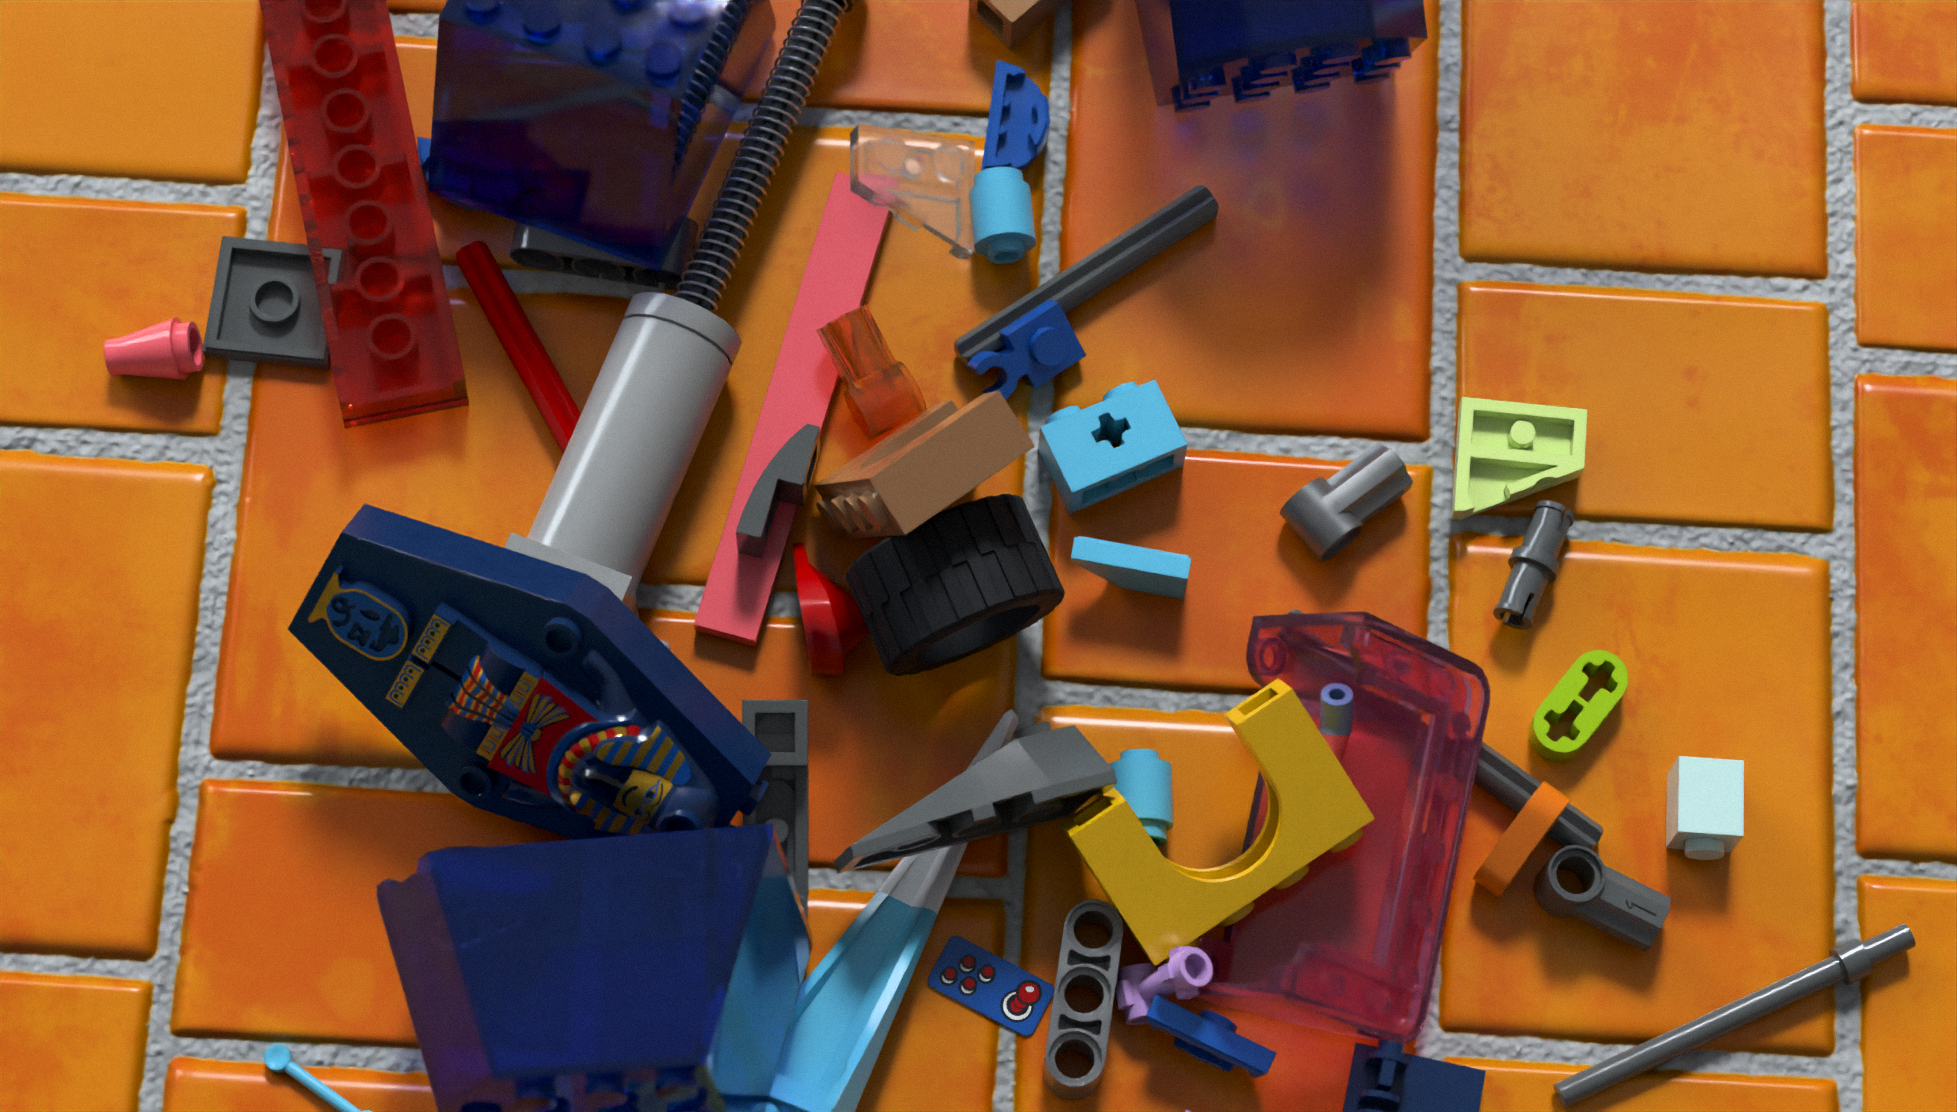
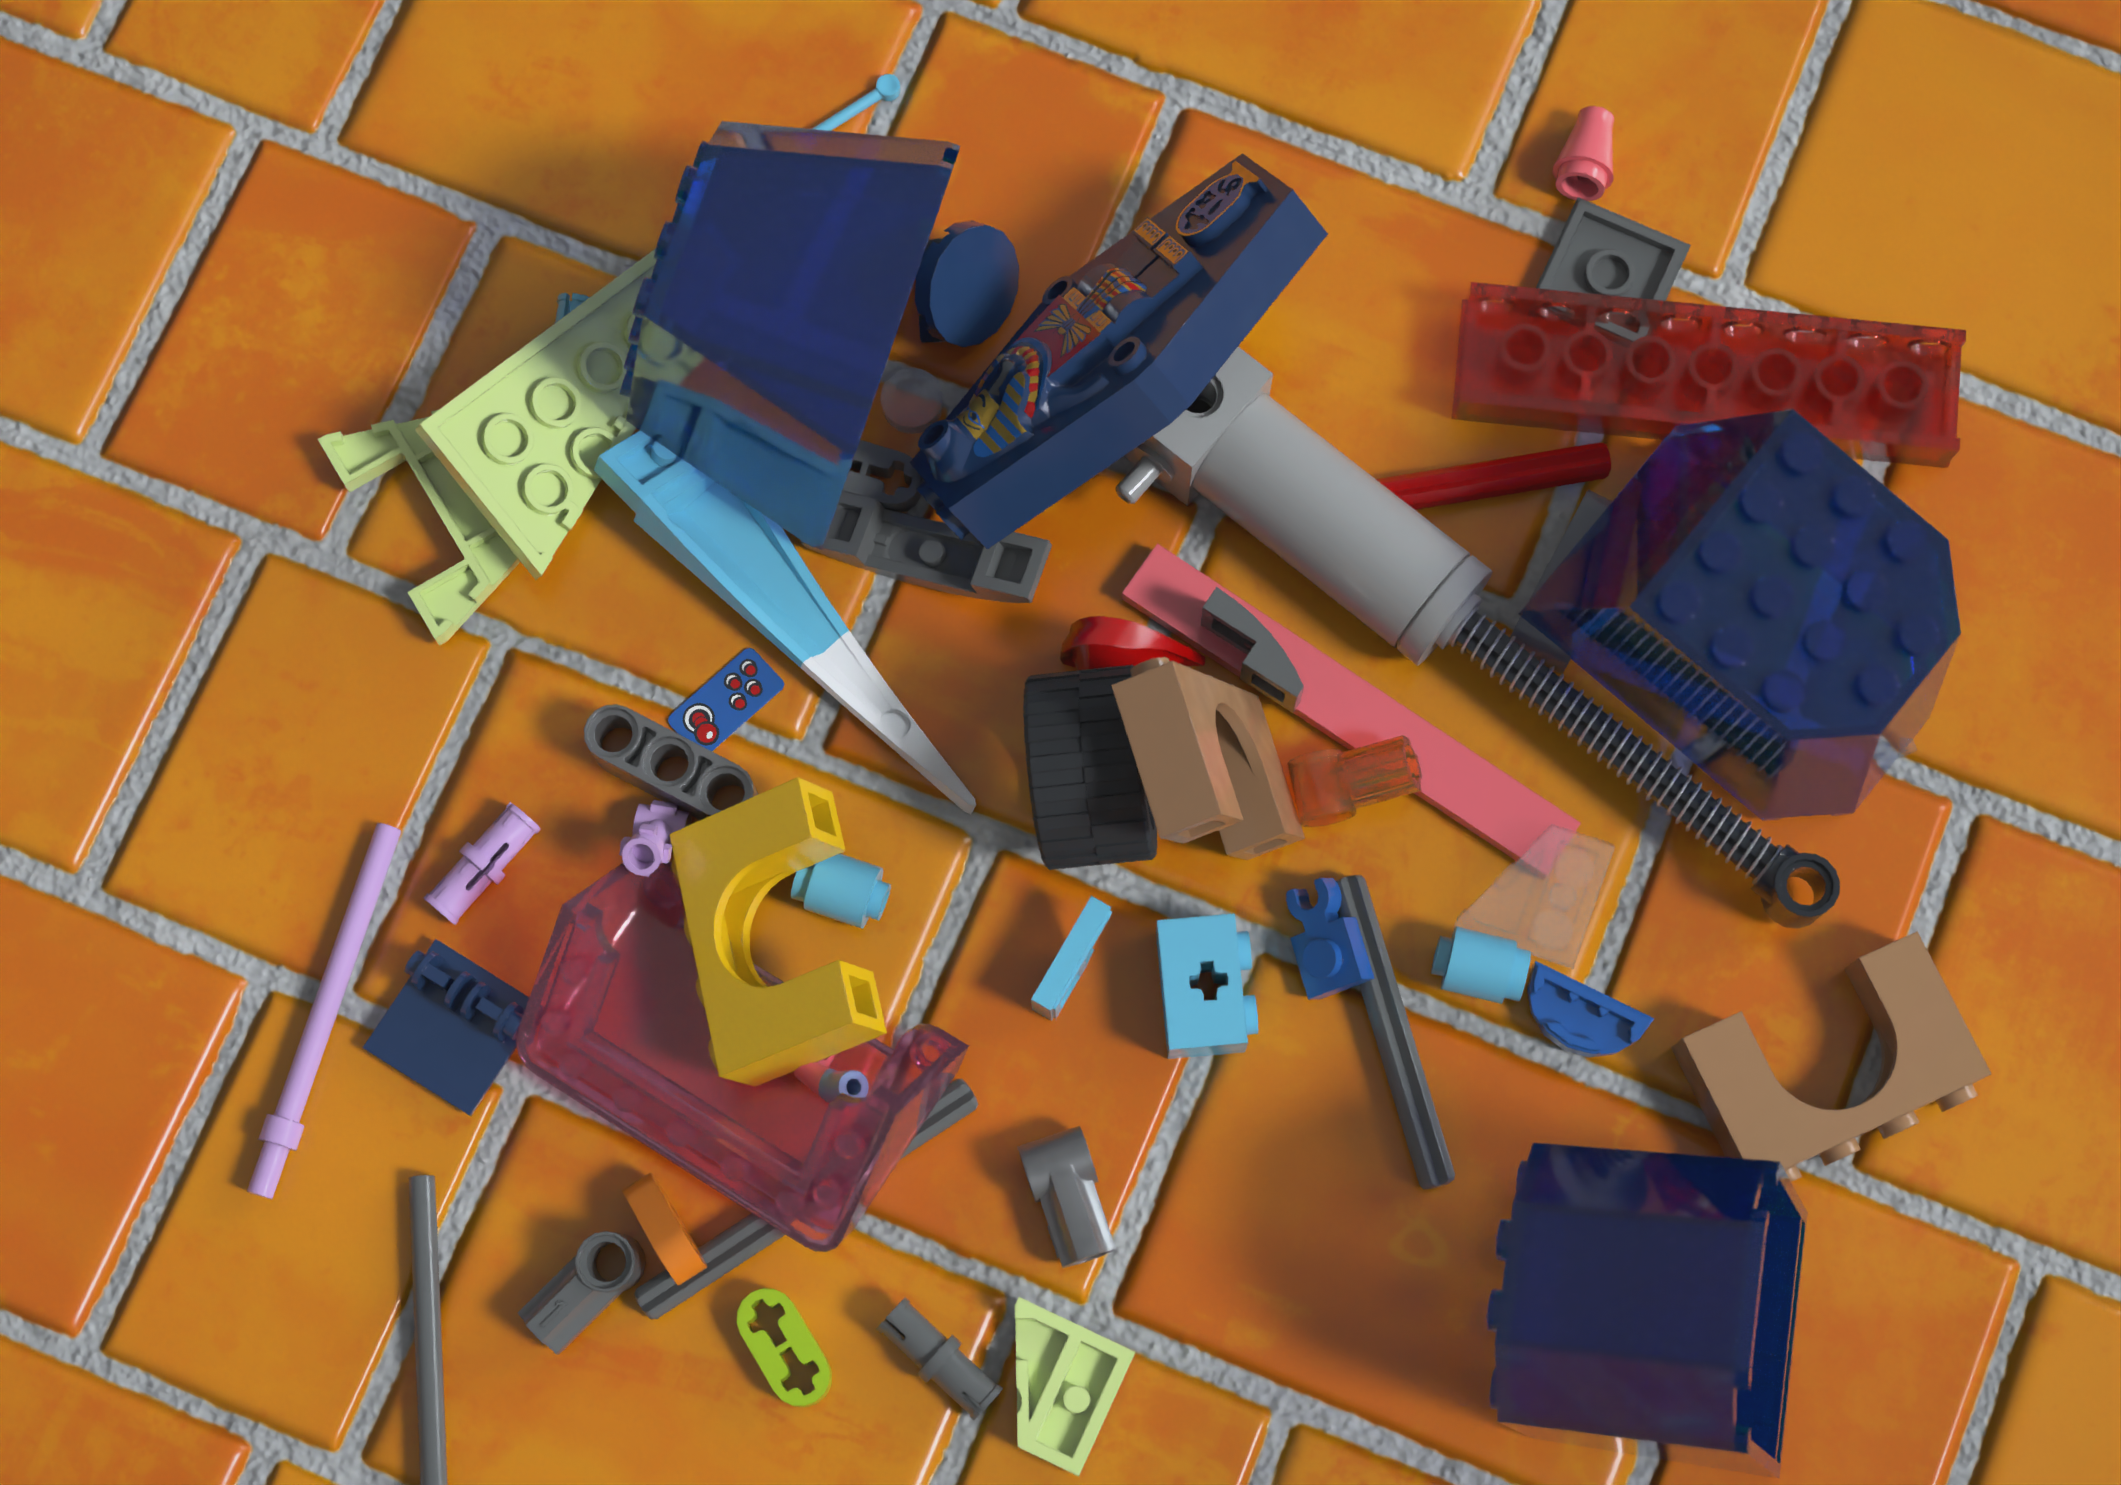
camera: 115 degrees right, 5 degrees up
(1021, 785) = (886, 772): dark grey wedge -> none
(1209, 1038) = (587, 865): blue plate -> none
(1705, 806) = (632, 1426): light aqua brick -> none

